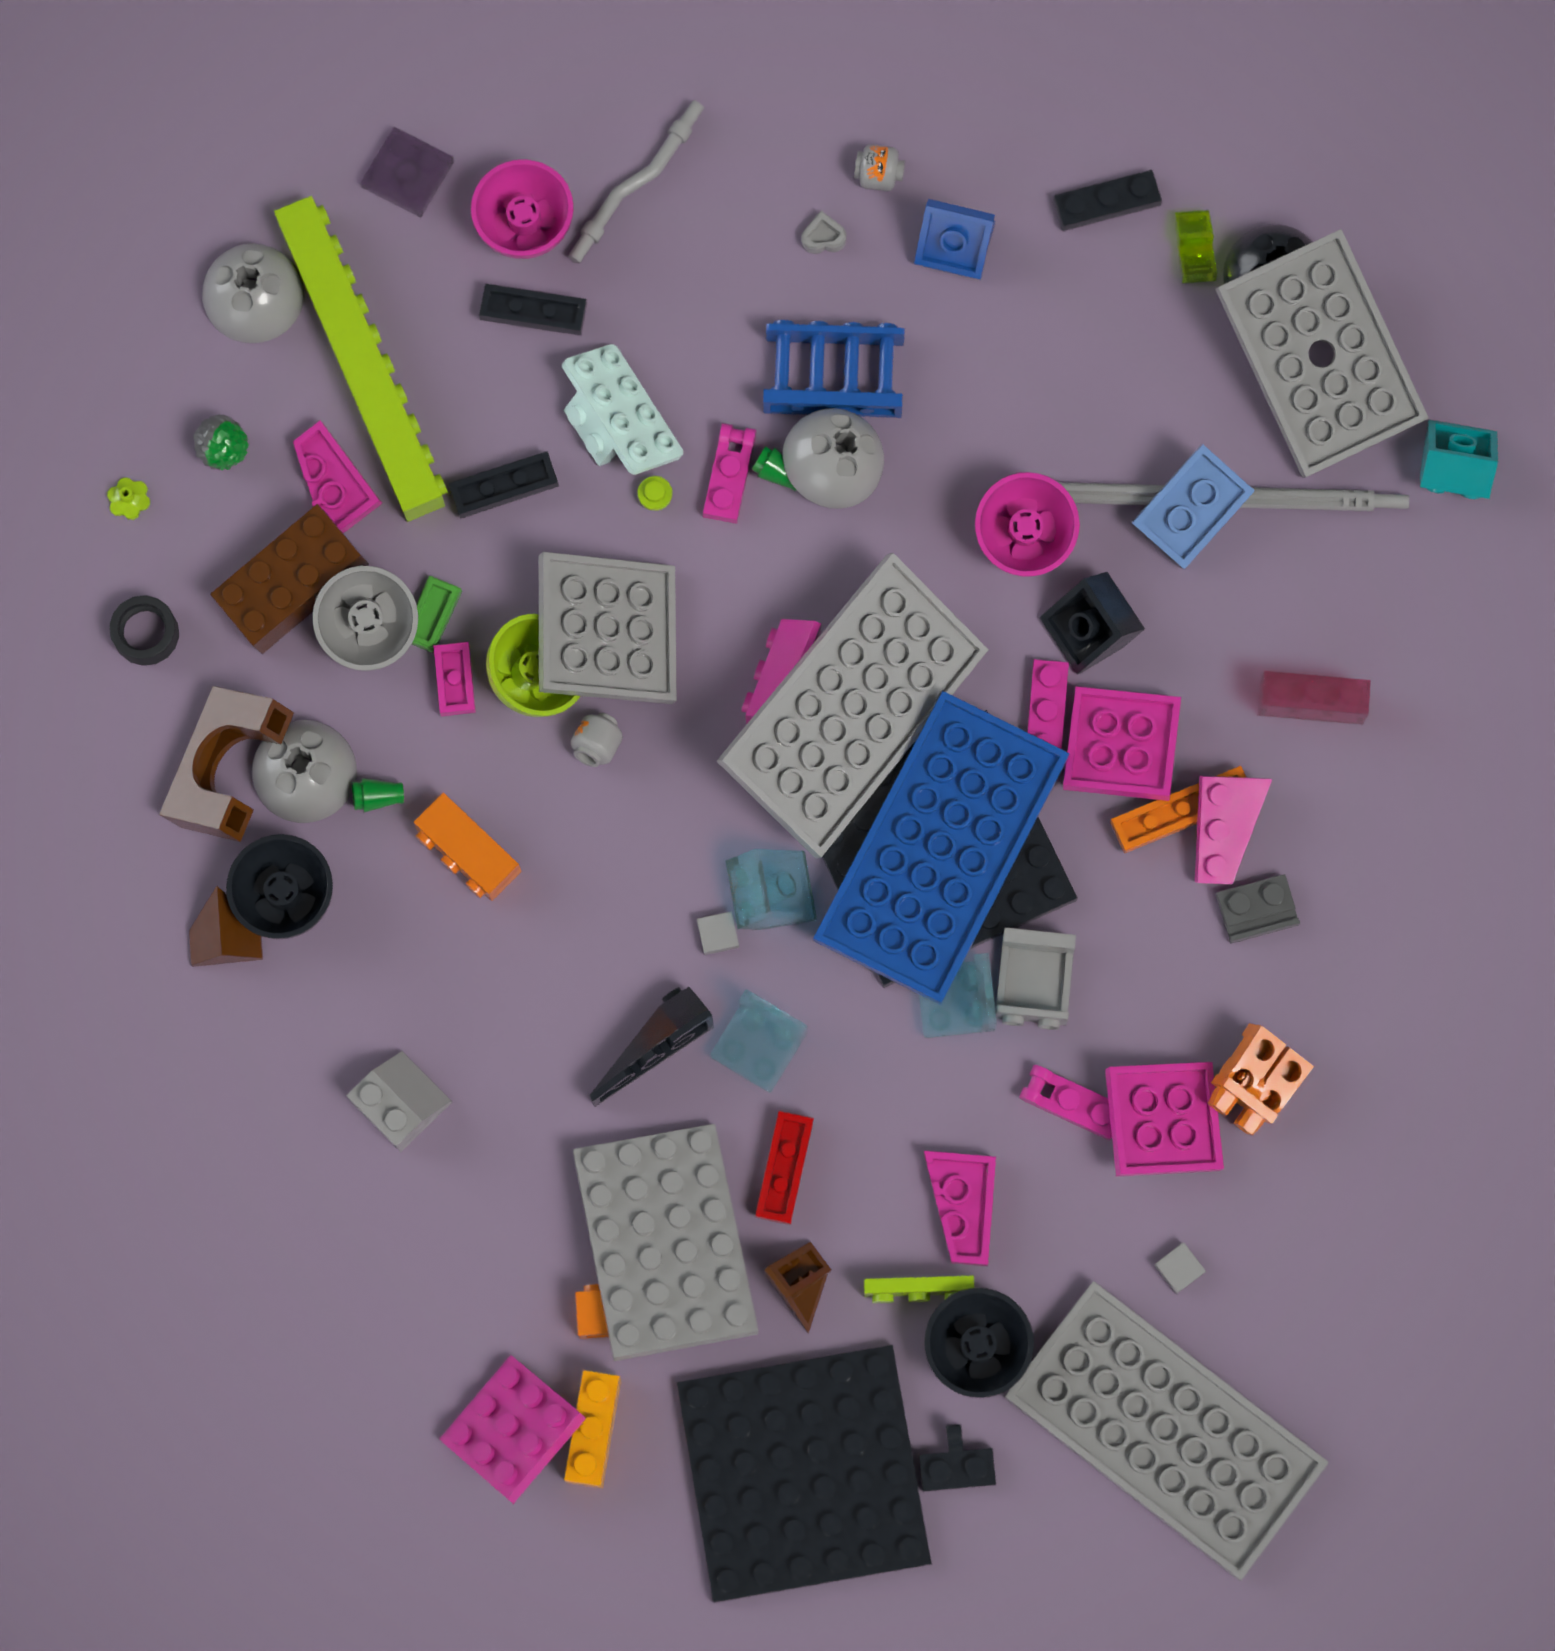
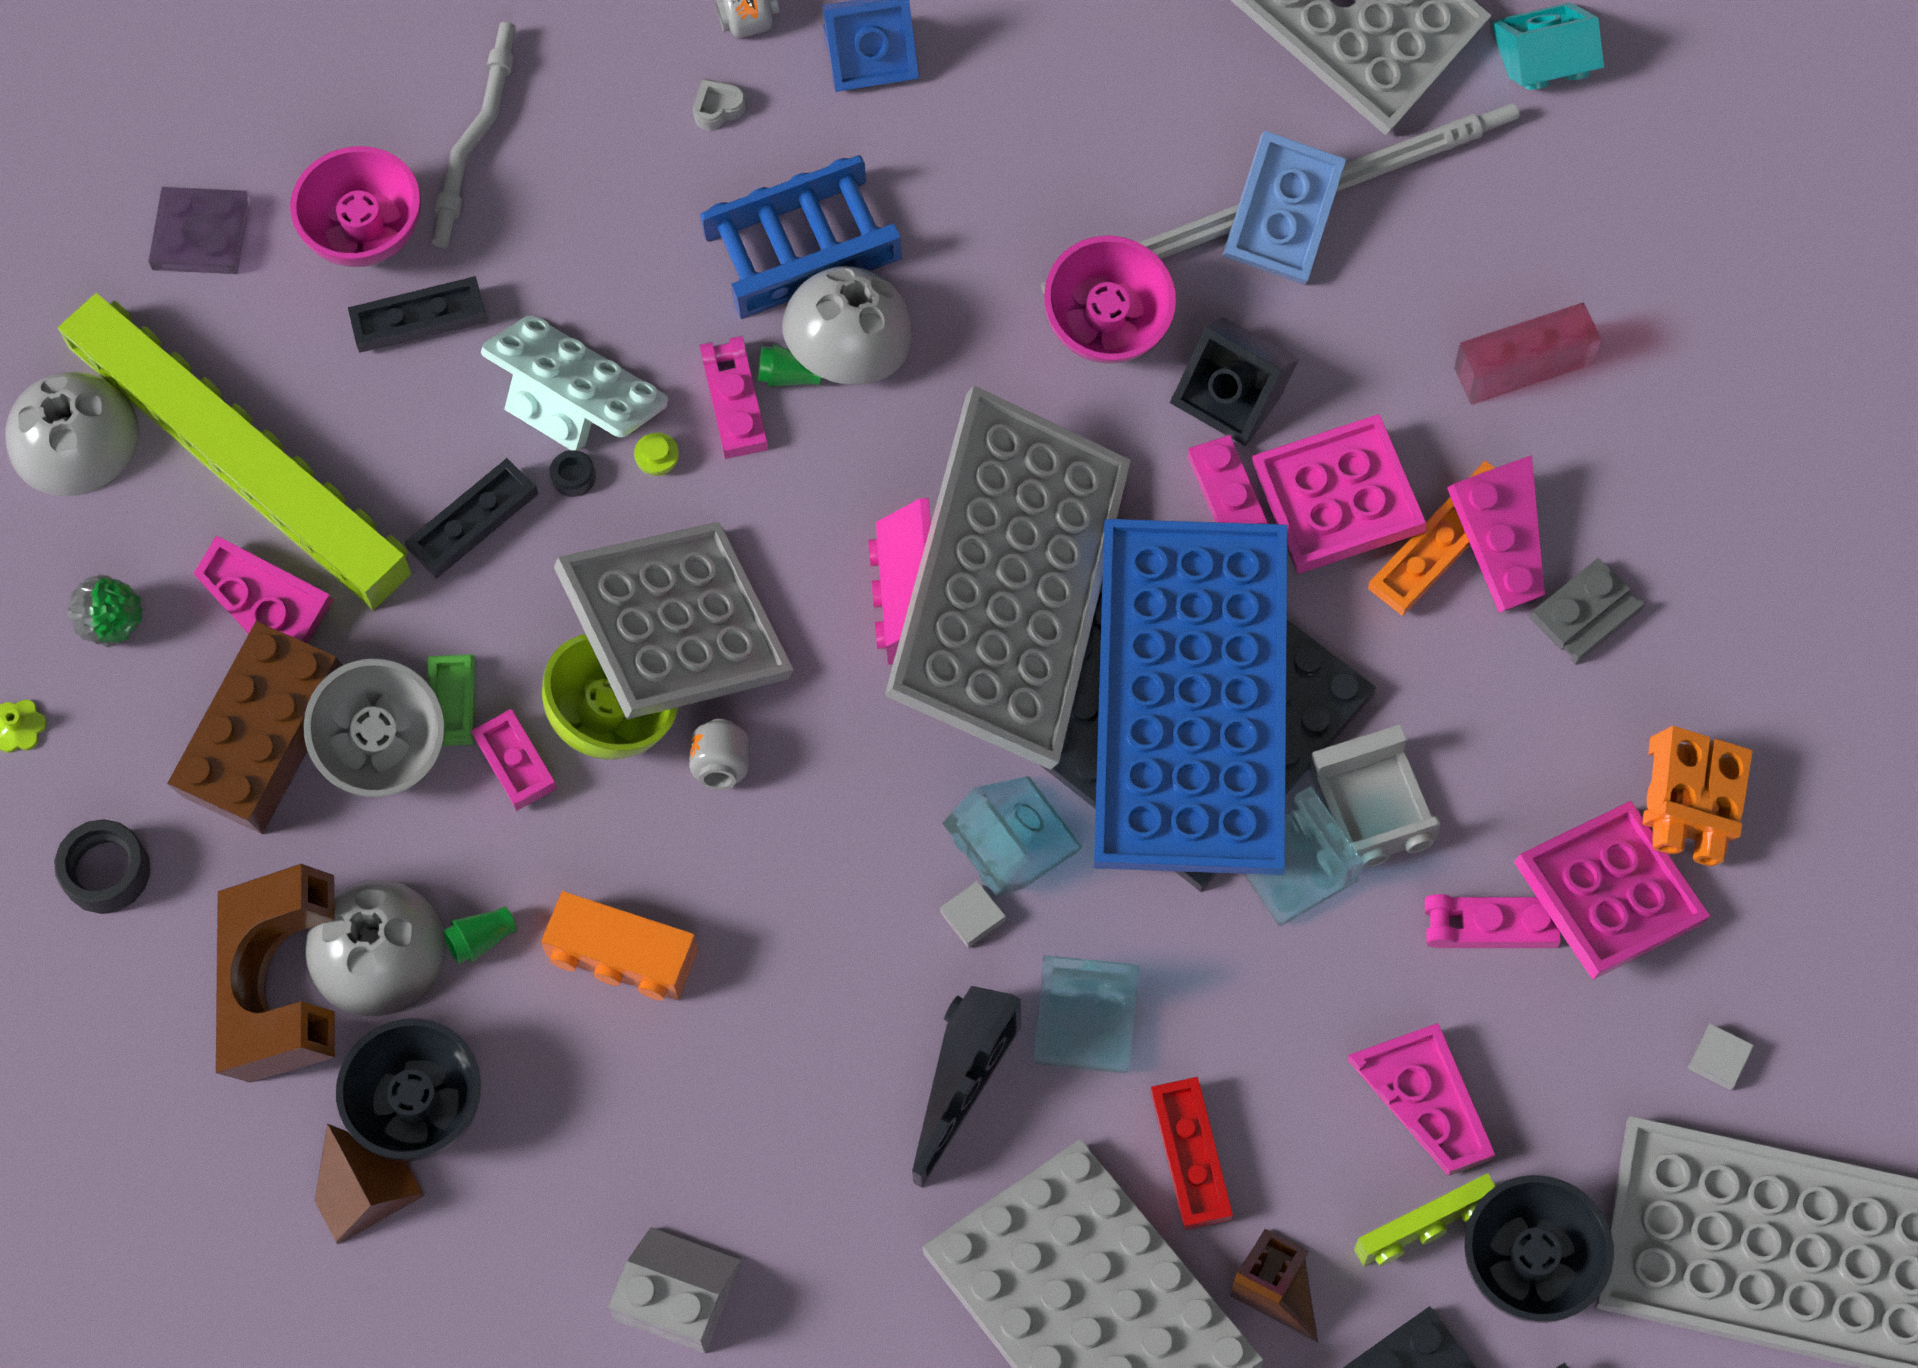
camera: 25 degrees left, 10 degrees down
(590, 481) = (572, 473): none -> black tile

